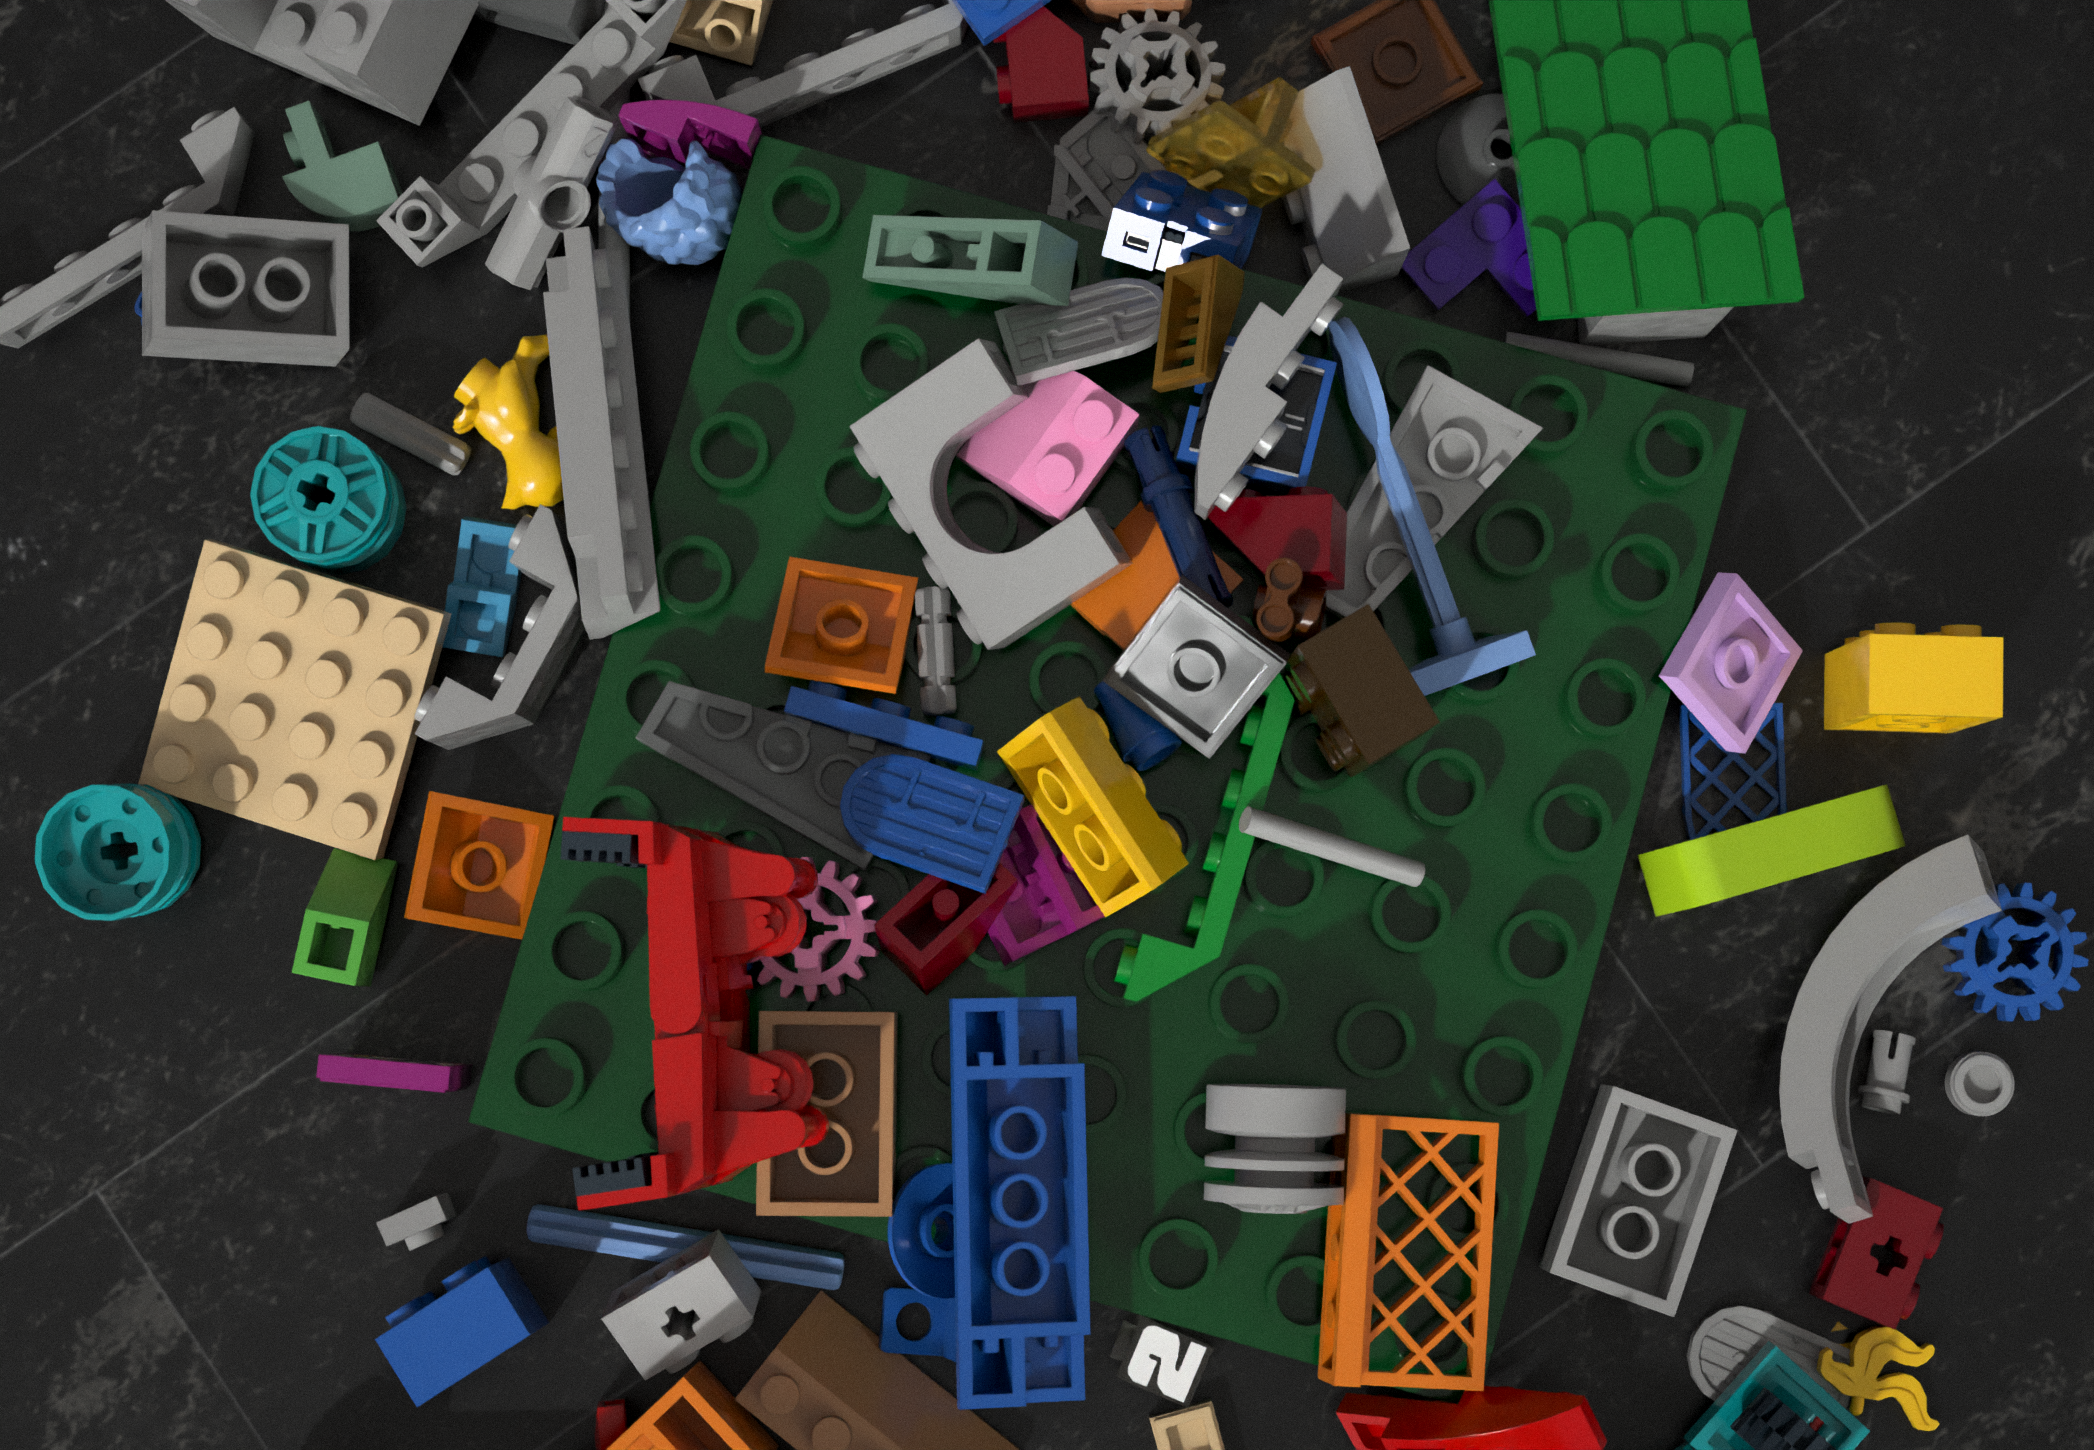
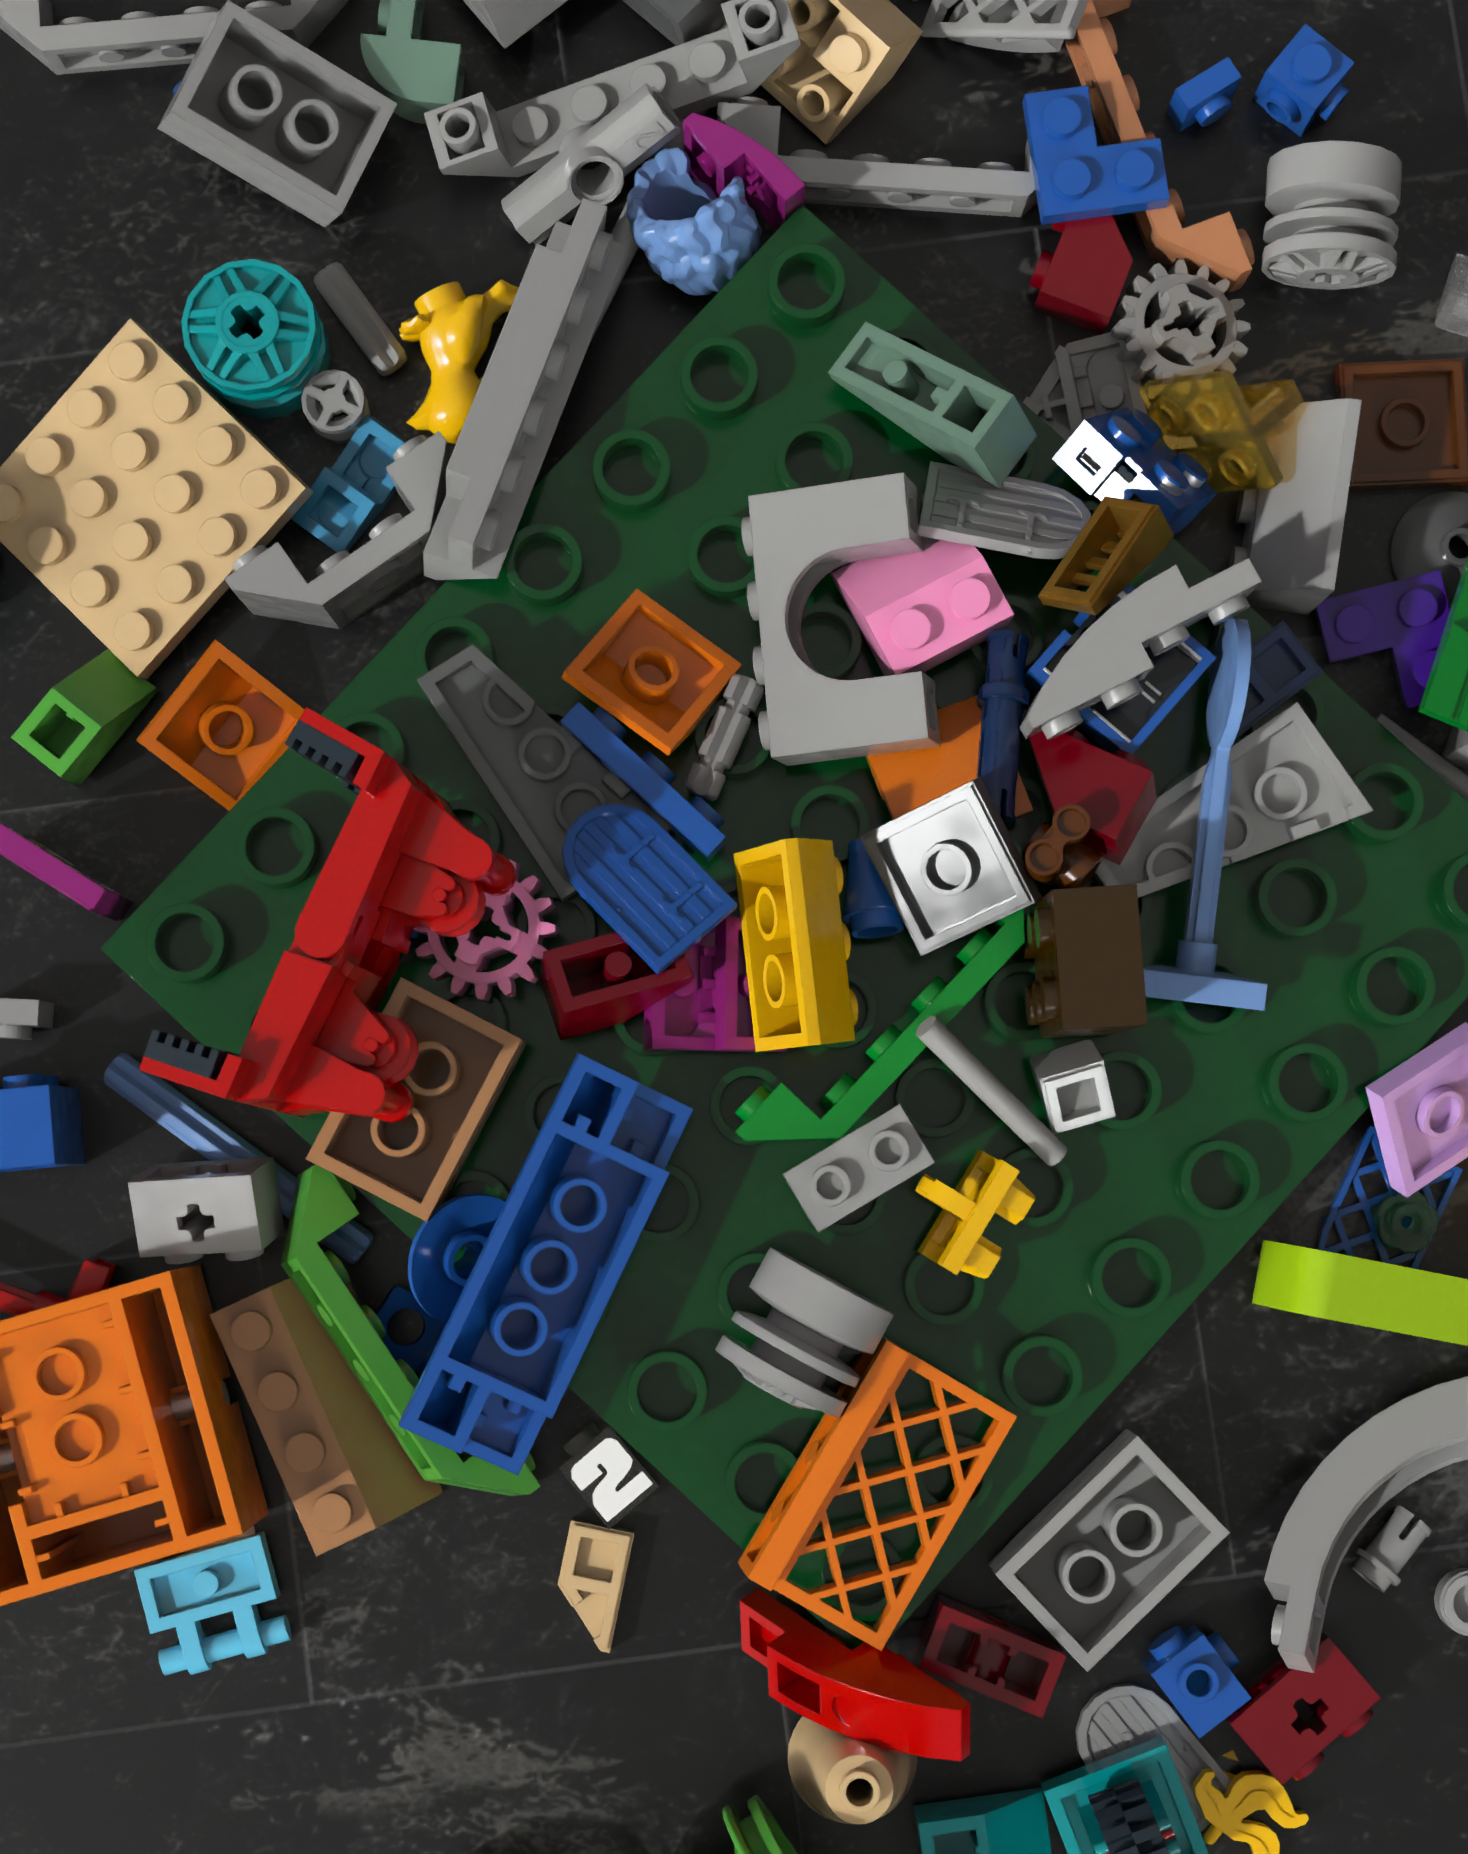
camera: 25 degrees right, 0 degrees up
(417, 522) = (327, 396): none -> light grey wheel
(784, 1255) = (319, 1208): none -> bright green slope
(1248, 974) = (858, 1168): none -> light grey brick
(1369, 937) = (956, 1236): none -> yellow hips
(1396, 348) = (1277, 673): none -> dark blue tile
(1400, 805) = (1072, 1086): none -> light grey slope
(1581, 1347) = (989, 1655): none -> dark red brick
(1738, 776) = (1389, 1226): none -> clear green plate
(1772, 1272) = (1196, 1676): none -> blue brick

